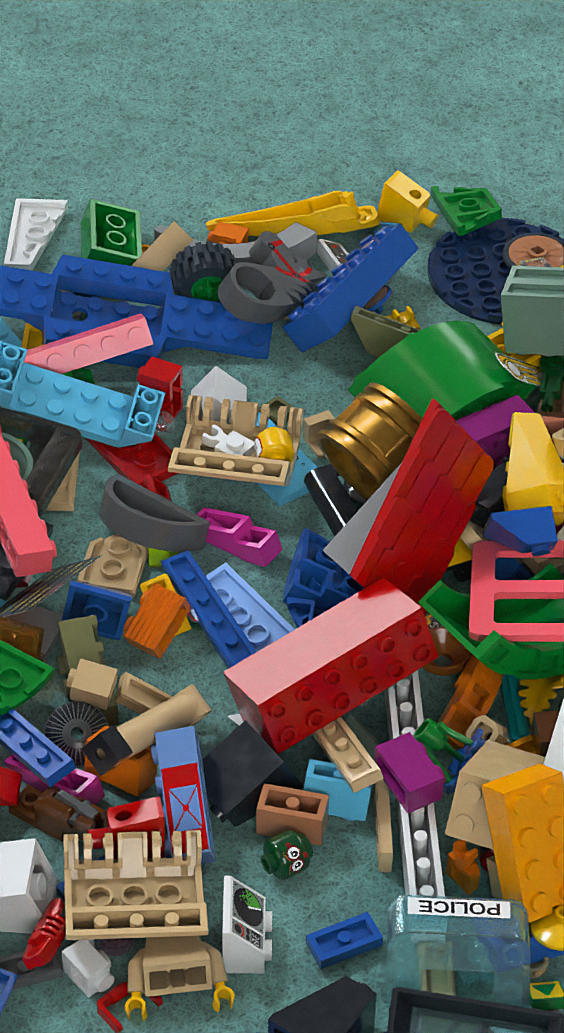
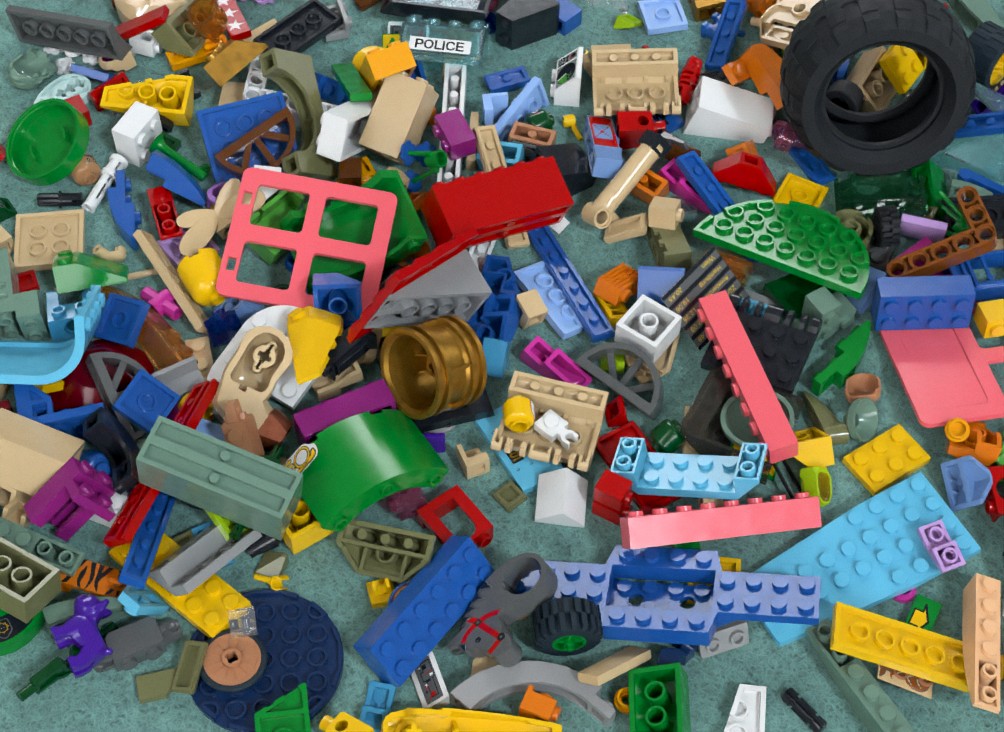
camera: 175 degrees left, 10 degrees up
(95, 463) = (667, 436): none -> dark green head
(126, 552) = (648, 327): none -> white brick
(239, 874) = (570, 121): none -> yellow hand
(270, 583) = (533, 308): none -> tan panel
(309, 365) = (430, 516): none -> red panel
(309, 512) = (496, 356): none -> dark azure brick
(317, 861) = (530, 99): none -> light blue wing
(357, 853) = (493, 107): none -> light blue panel

